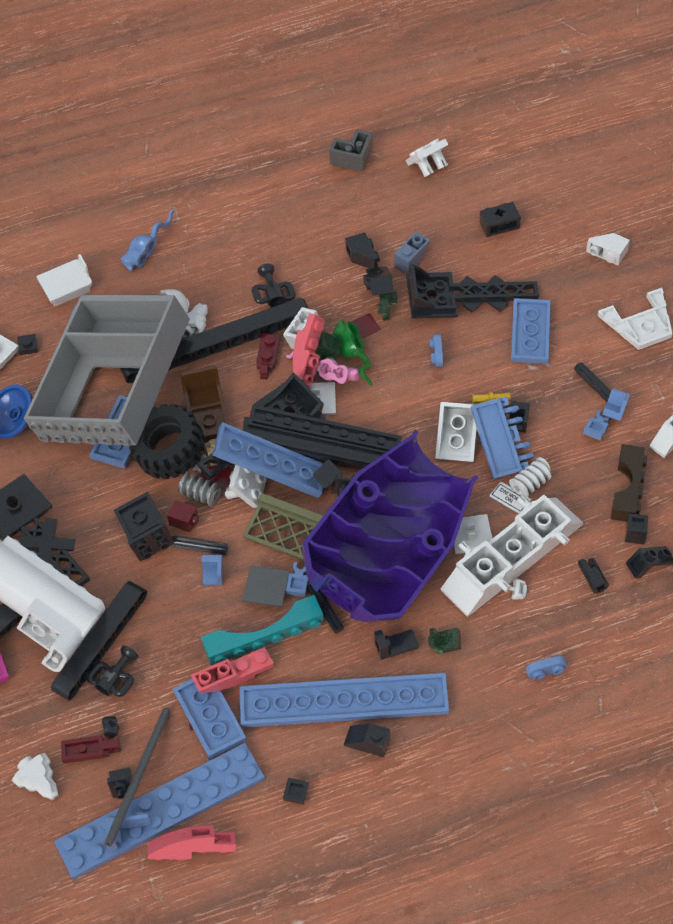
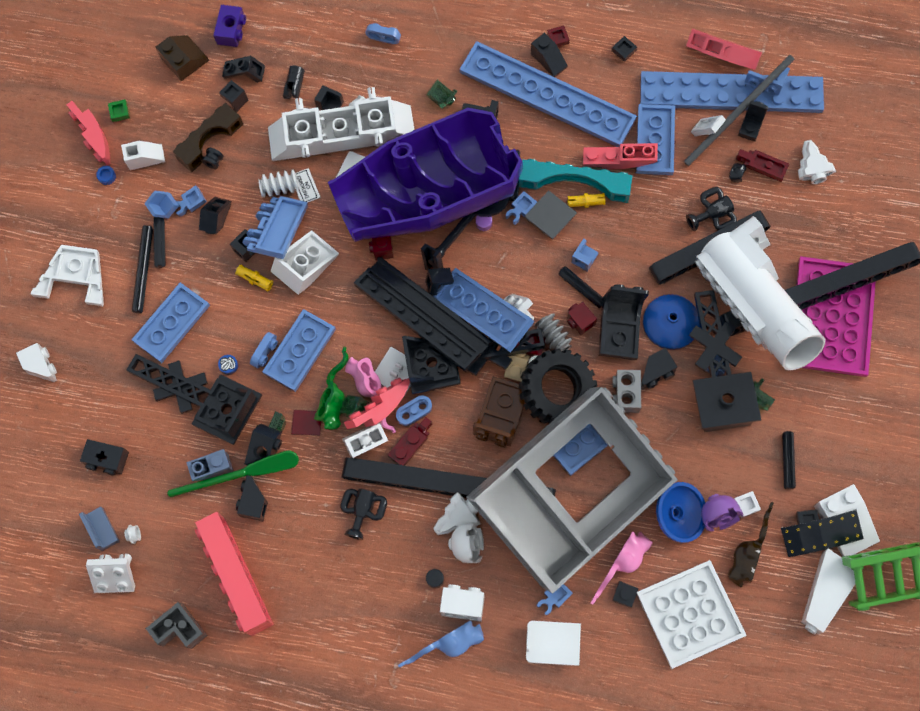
camera: 145 degrees left, 15 degrees up
(38, 361) = (627, 560): none -> bright pink animal
(90, 512) = (658, 367): none -> black slope
(104, 482) = (631, 391): none -> light grey brick
(107, 569) = (668, 332): none -> blue dish
(149, 265) = (462, 603): none -> white brick
(162, 747) = (708, 125): none -> white plate
(184, 279) = (435, 578): none -> black piece
(242, 621) = (586, 200): none -> yellow pin
(277, 374) = (412, 408): none -> medium blue plate
(286, 510) = (487, 260): olive fence -> none
(336, 197) = (234, 574): none -> coral brick
(368, 267) = (271, 464): none -> green piece
(371, 765) = (559, 35): none -> dark red plate
(408, 367) = (299, 350): none -> medium blue plate
(435, 188) = (132, 534): none -> white plate
(459, 329) = (228, 364): none -> tile
(463, 177) = (99, 528): none -> sand blue panel
(548, 578) = (328, 99): none -> black panel
(566, 425) = (214, 215): none -> black slope
(590, 356) = (142, 269): none -> black axle
(608, 468) = (212, 158): none -> black wheel

